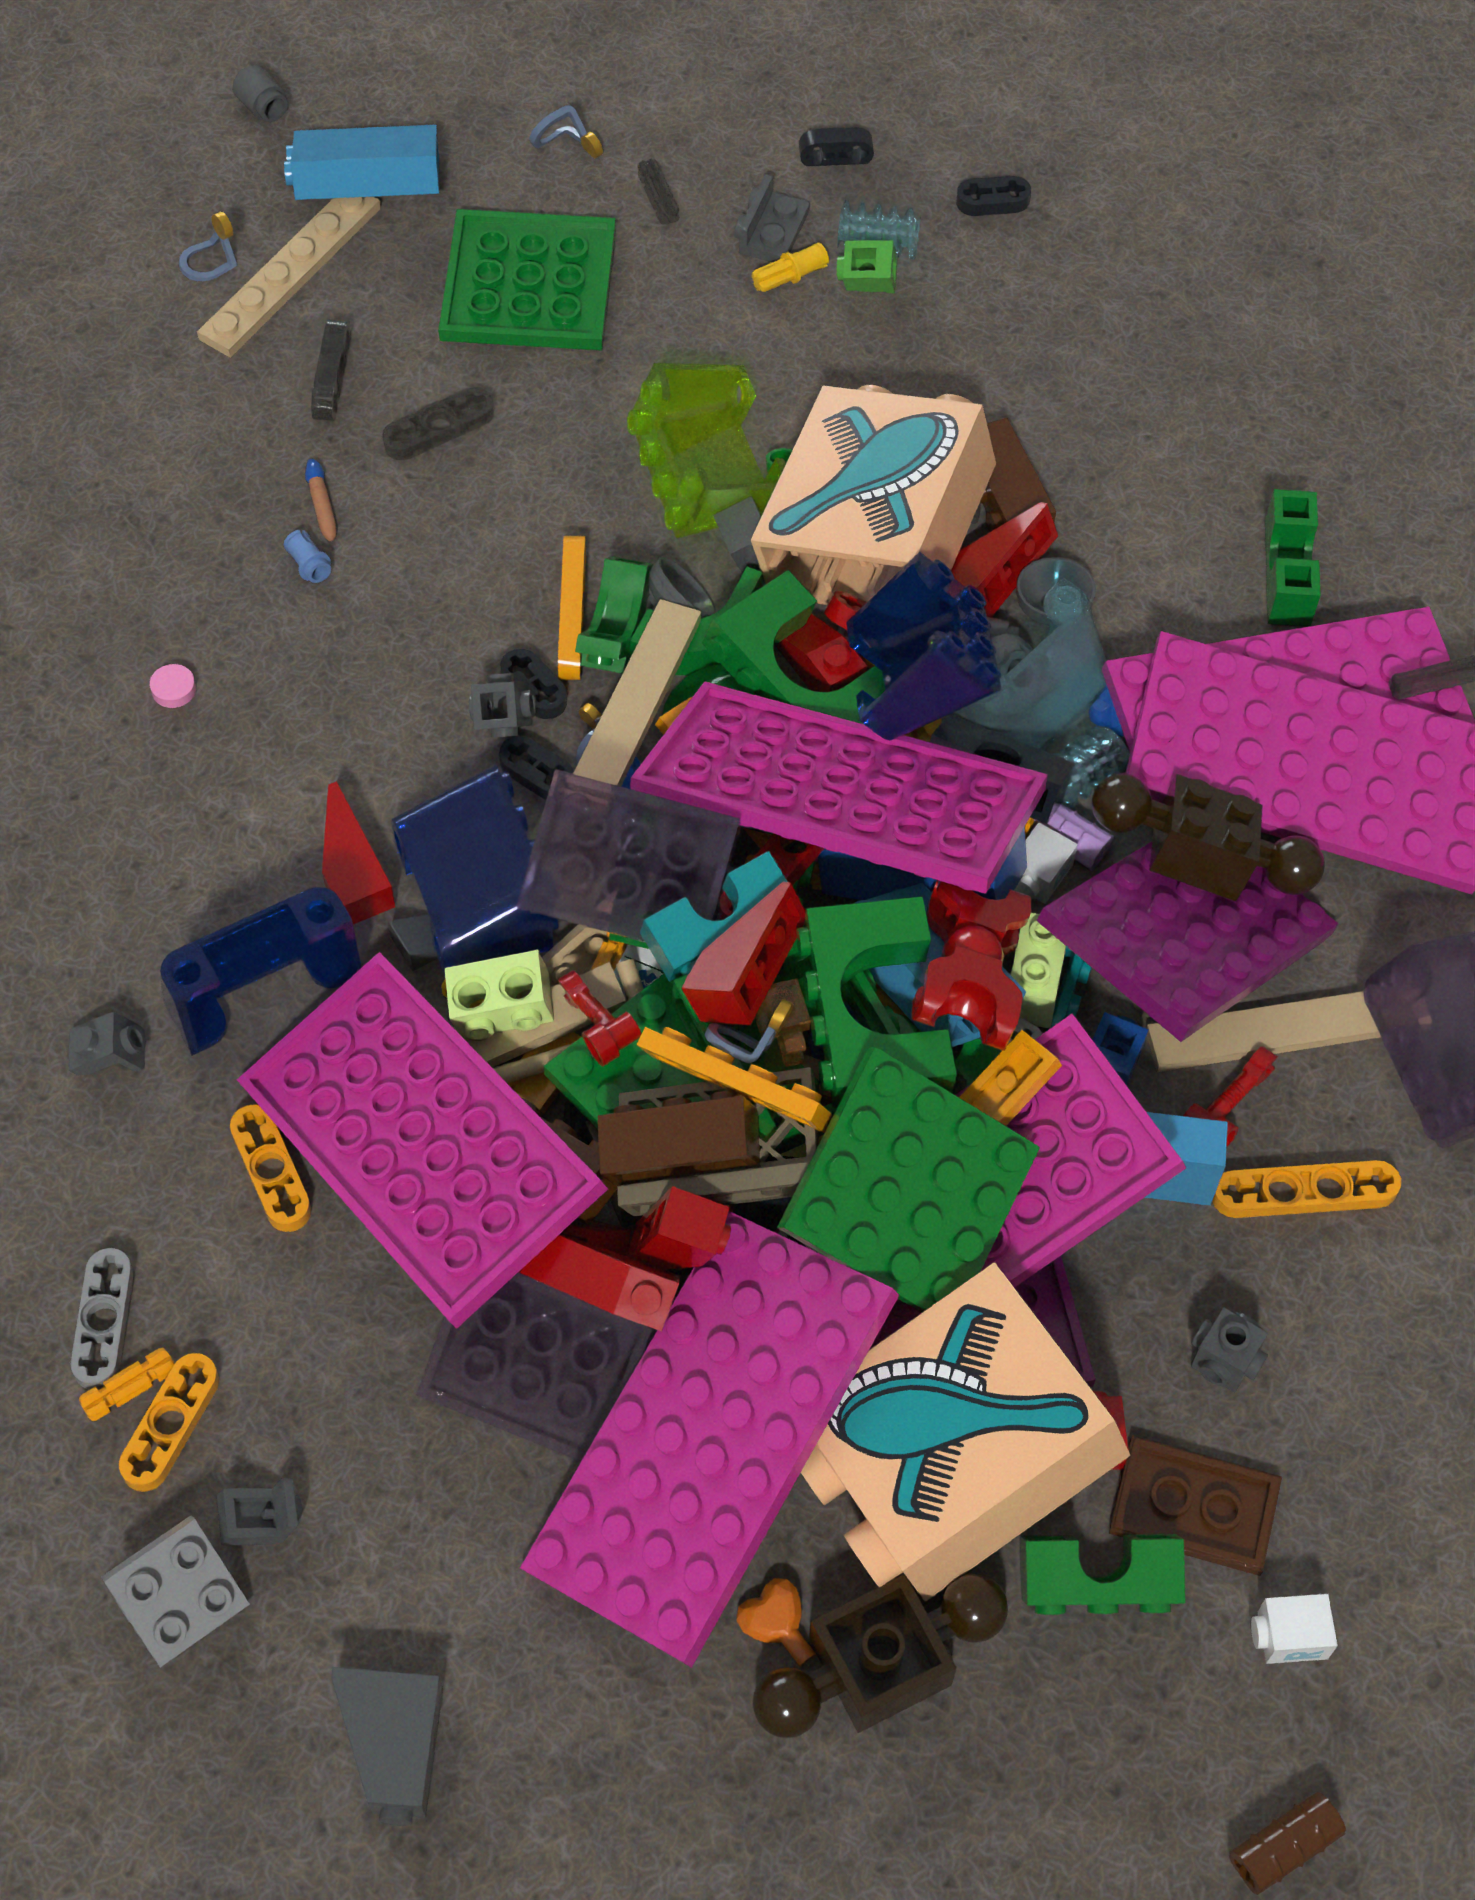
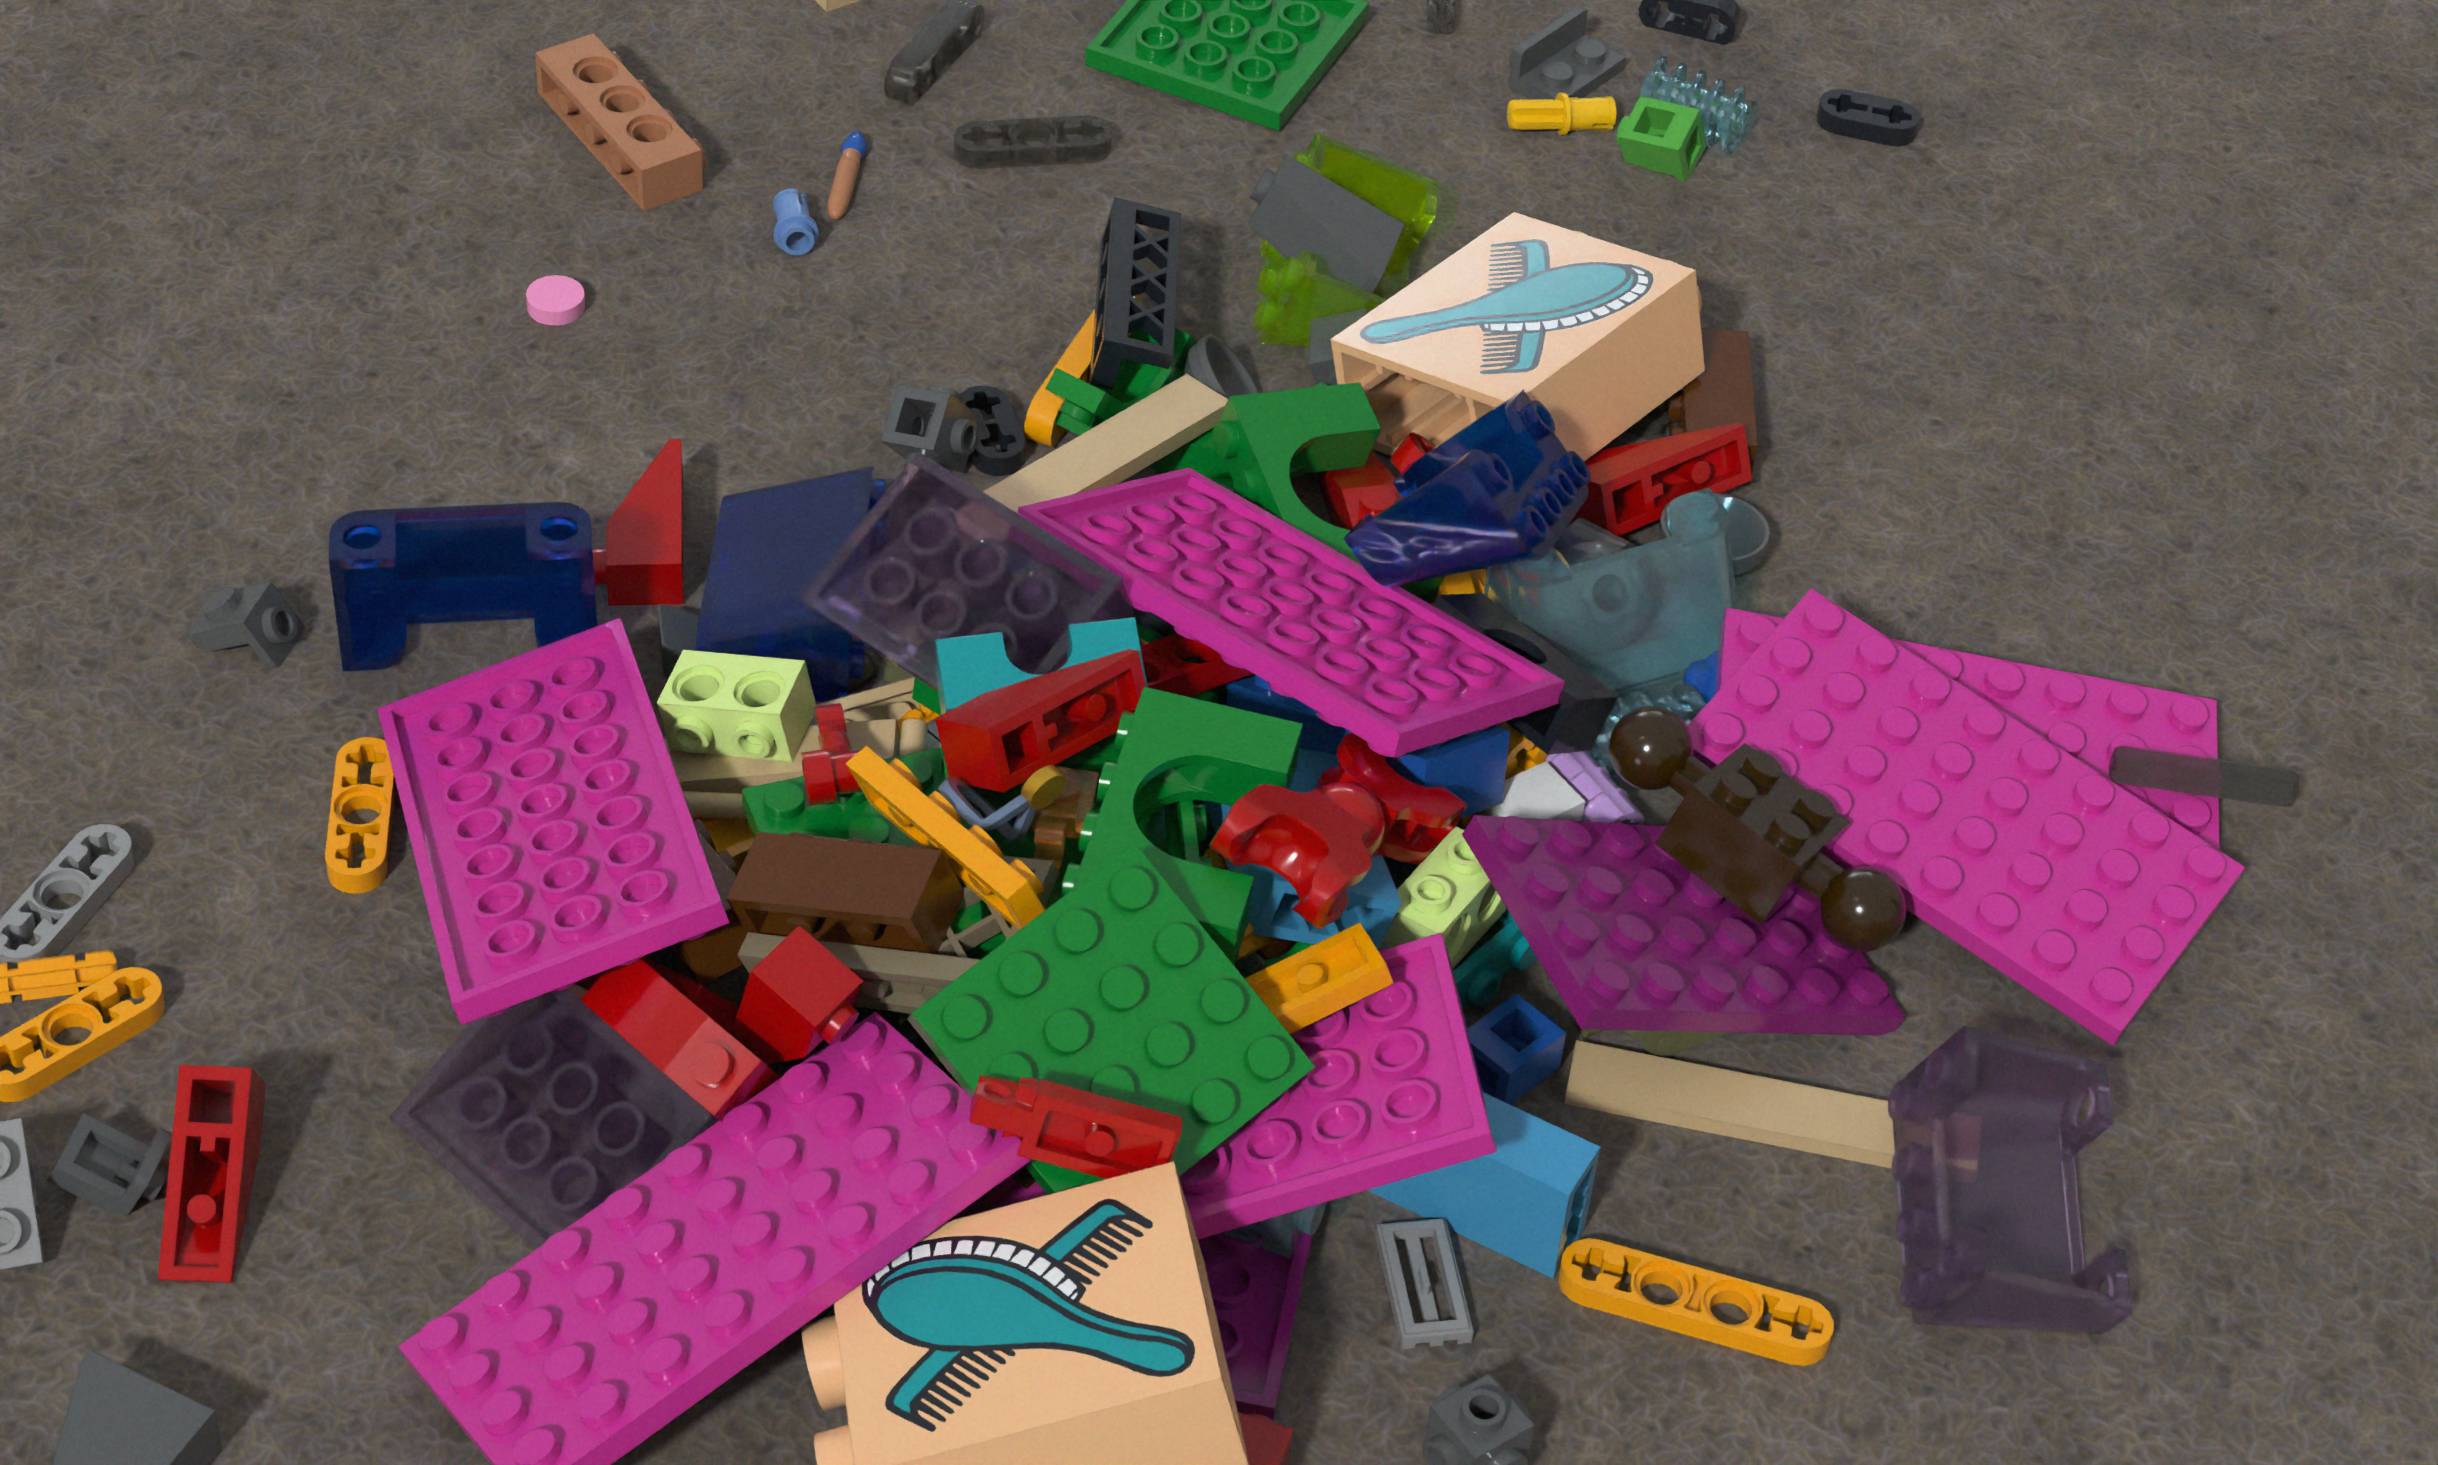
camera: 20 degrees right, 15 degrees down
(139, 514) = (620, 121): none -> nougat brick
(329, 1495) = (210, 1171): none -> red slope
(573, 536) = (1123, 278): none -> black fence
(692, 435) = (1312, 213): none -> dark grey slope
(923, 1264) = (1075, 1126): none -> red hinge
(1142, 1283) = (1432, 1329): none -> light grey tile
(1252, 1074) = (1692, 1145): red brick -> none
(1290, 571) = (2059, 588): green arch -> none

